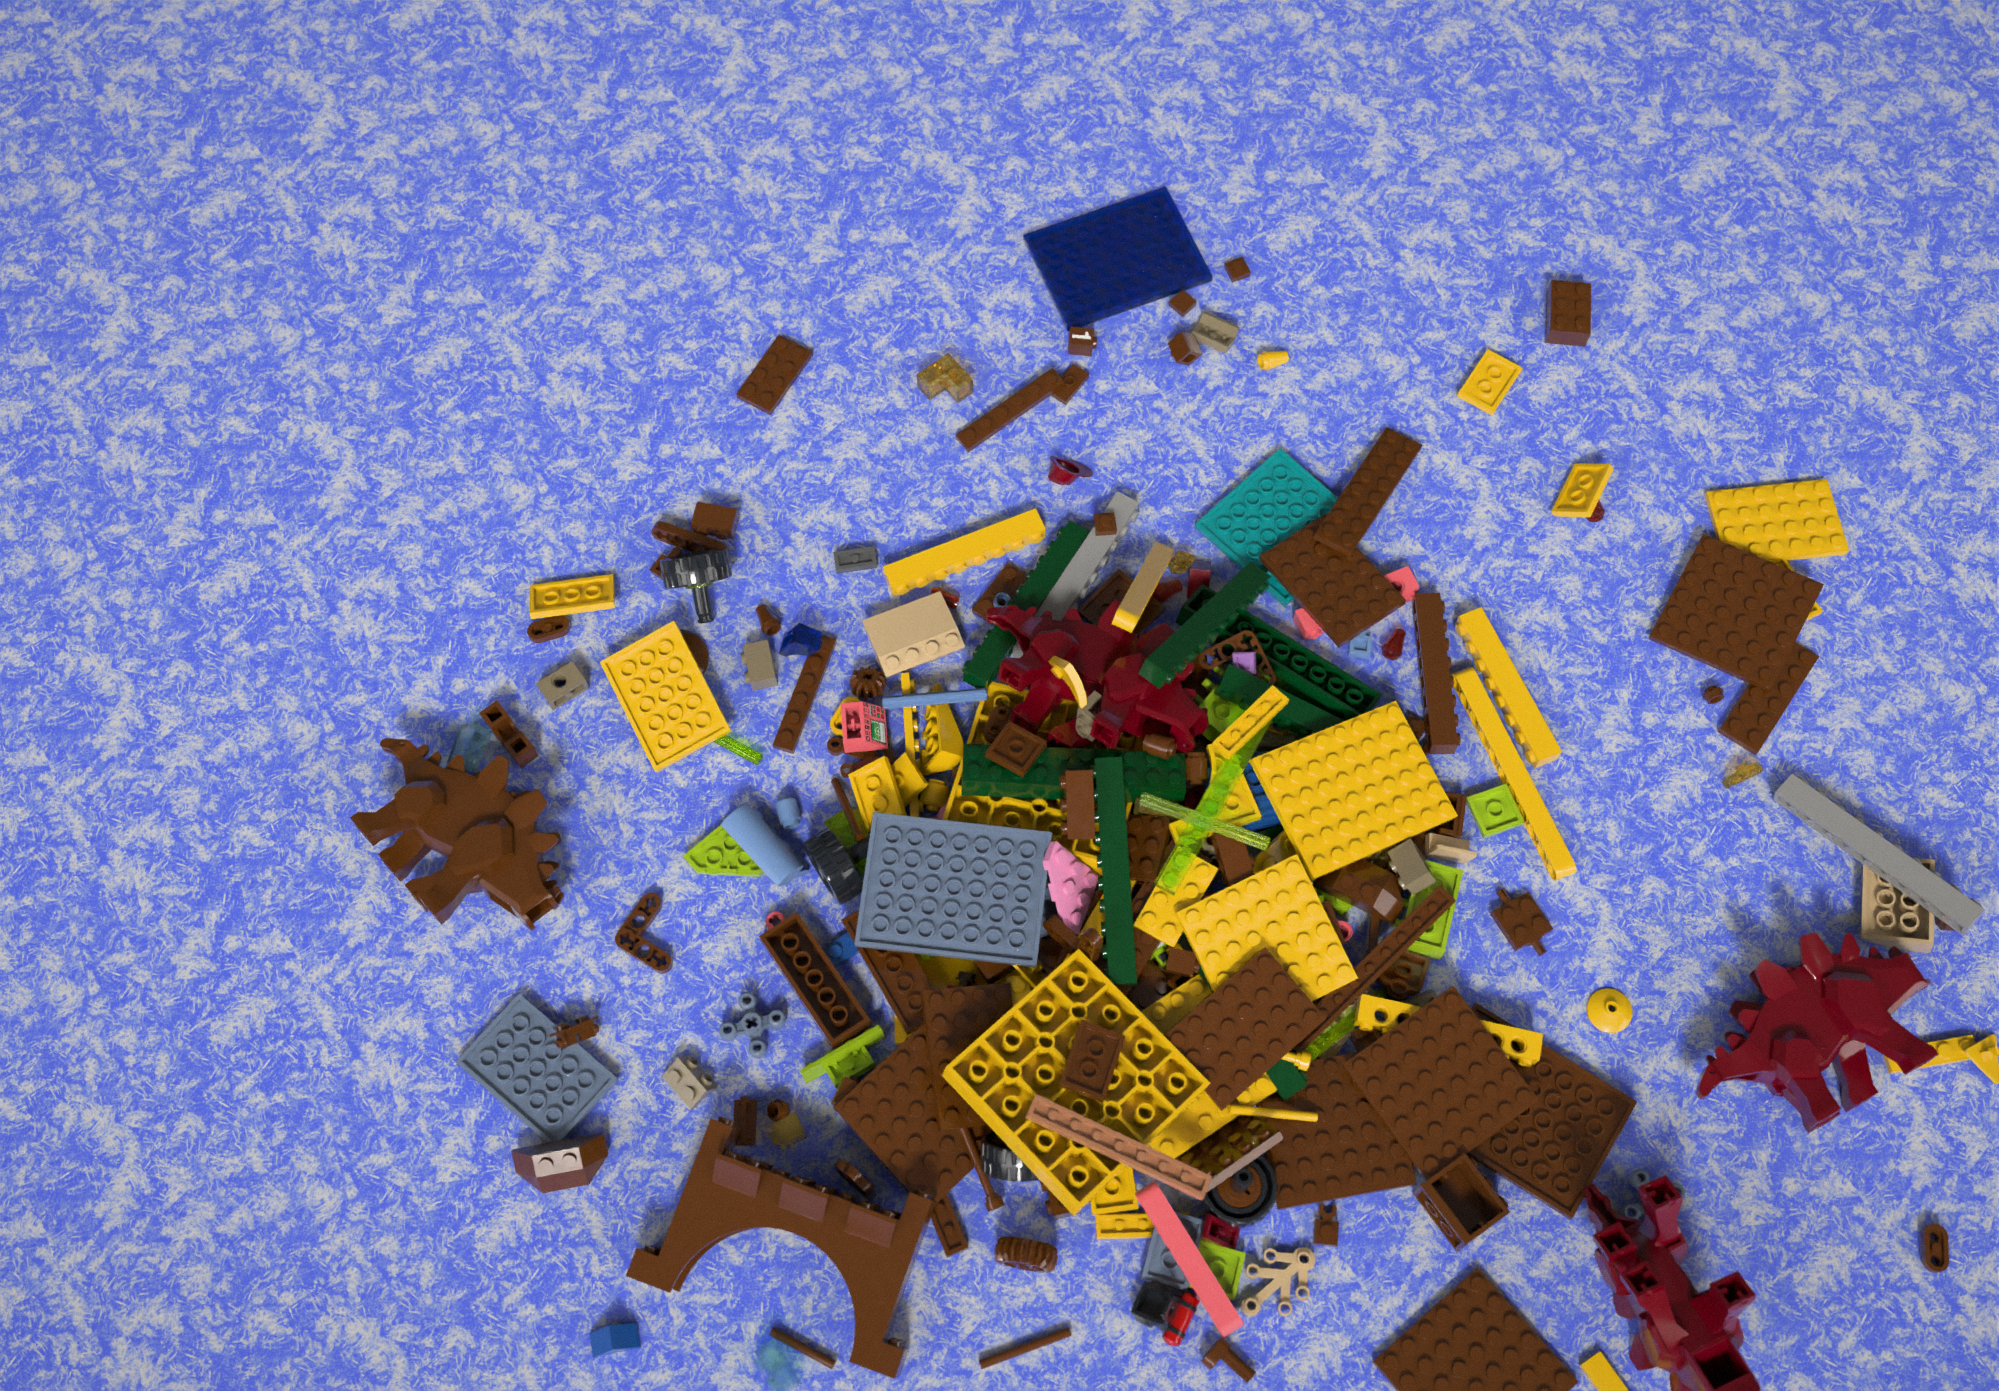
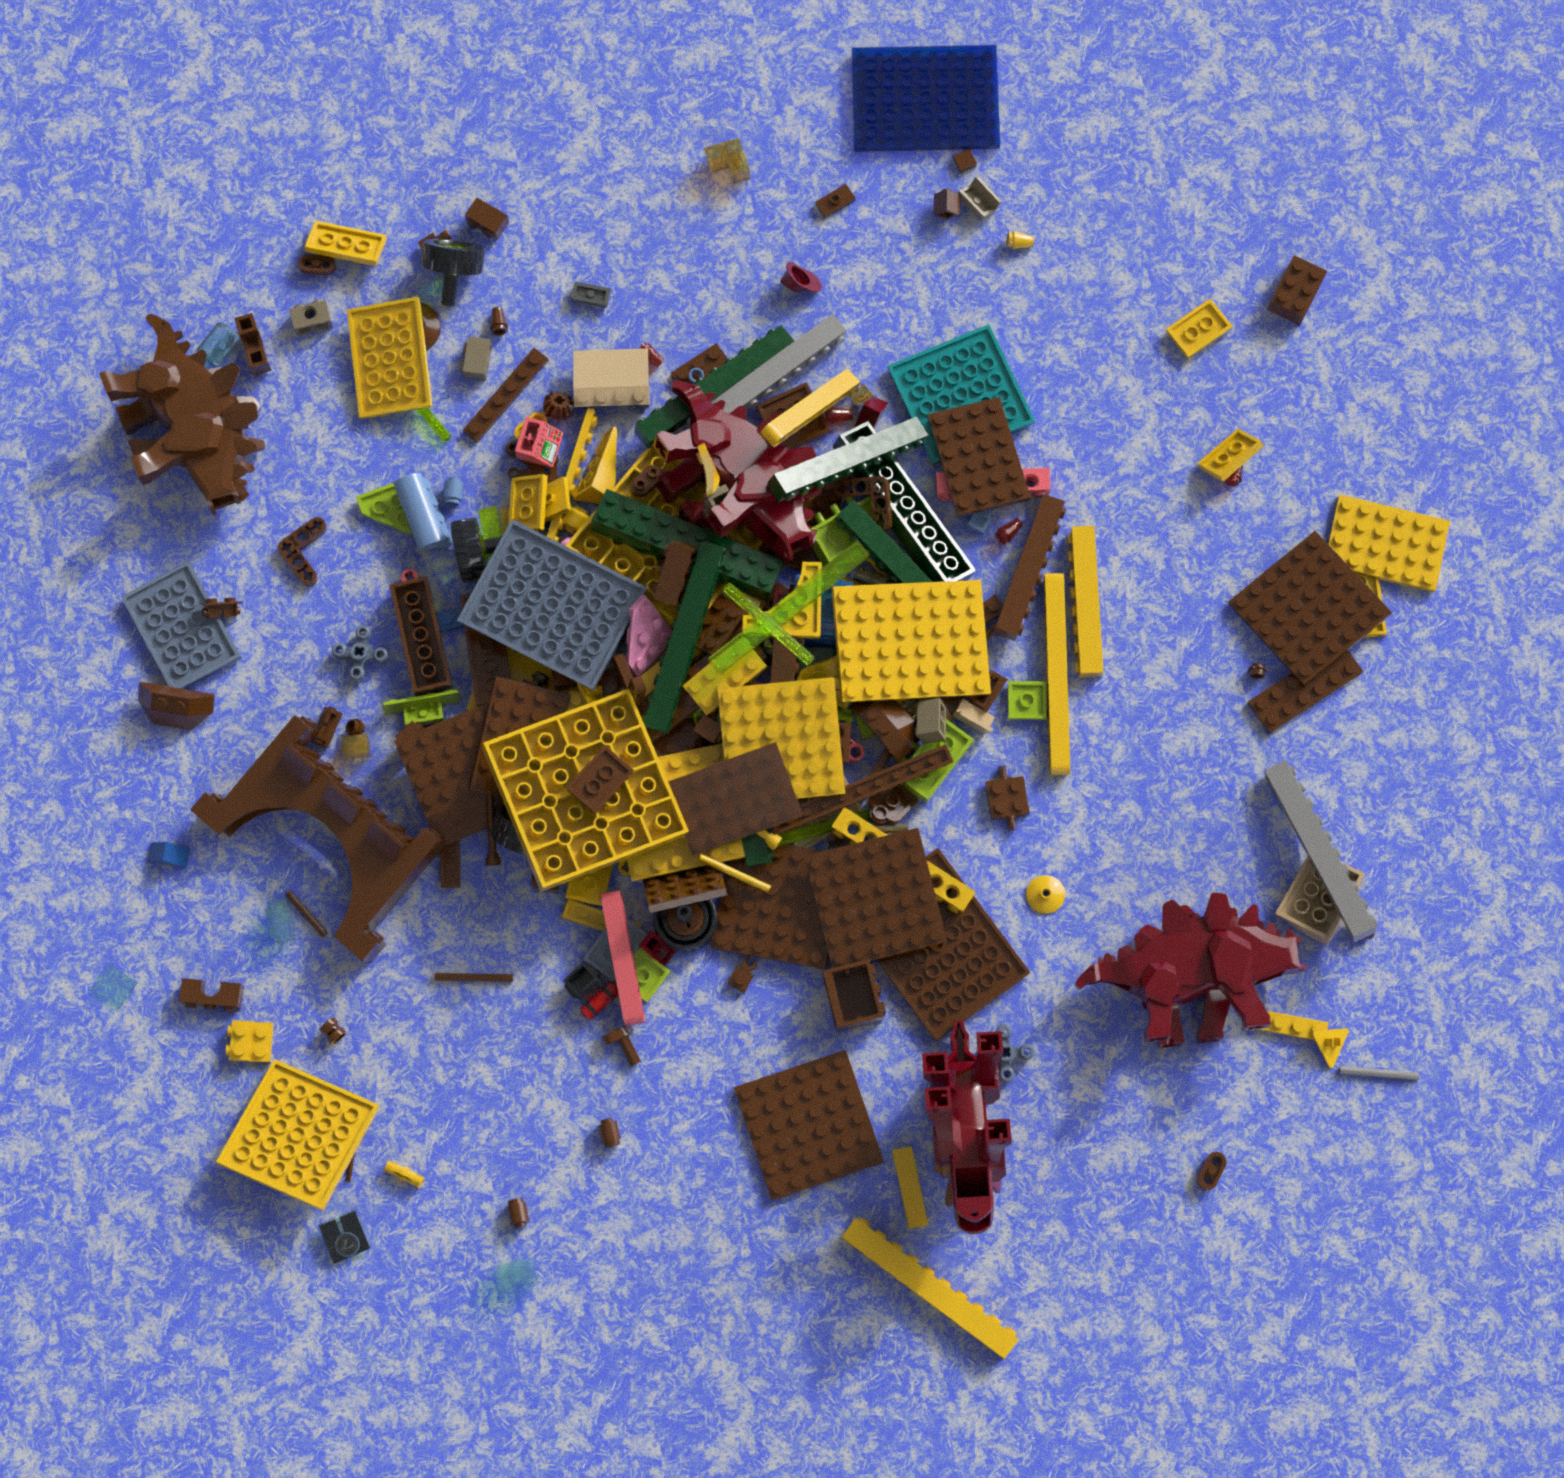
camera: 20 degrees right, 10 degrees up
(669, 534) = (457, 226): reddish brown beam -> none
(689, 1080) = (295, 678): dark tan bracket -> none
(774, 374) = (587, 102): reddish brown plate -> none
(801, 641) = (517, 350): clear blue arch -> none
(847, 809) = (500, 506): reddish brown bar -> none
(853, 1177) = (391, 796): reddish brown plate -> none
(935, 698) = (606, 440): medium blue axle -> none
(964, 552) = (683, 321): yellow brick -> none
(1010, 410) = (774, 207): reddish brown plate -> none
(1016, 749) = (644, 509): reddish brown plate -> none
(1026, 1254) = (500, 908): reddish brown gear -> none
(1081, 341) = (861, 165): reddish brown brick -> none
(1104, 524) = (808, 339): reddish brown plate -> none
(1119, 1147) = (592, 853): nougat plate -> none
(1159, 745) = (763, 548): reddish brown brick -> none
(1196, 768) = (786, 577): reddish brown brick -> none
(1237, 269) = (1026, 145): reddish brown plate -> none
(1245, 661) = (869, 502): medium lavender tile -> none
(1250, 722) = (841, 556): yellow plate -> none
(1281, 1279) = (690, 1000): tan plant -> none
(1368, 492) = (1045, 390): reddish brown plate -> none
(1743, 773) = (1249, 745): clear yellow plate -> none

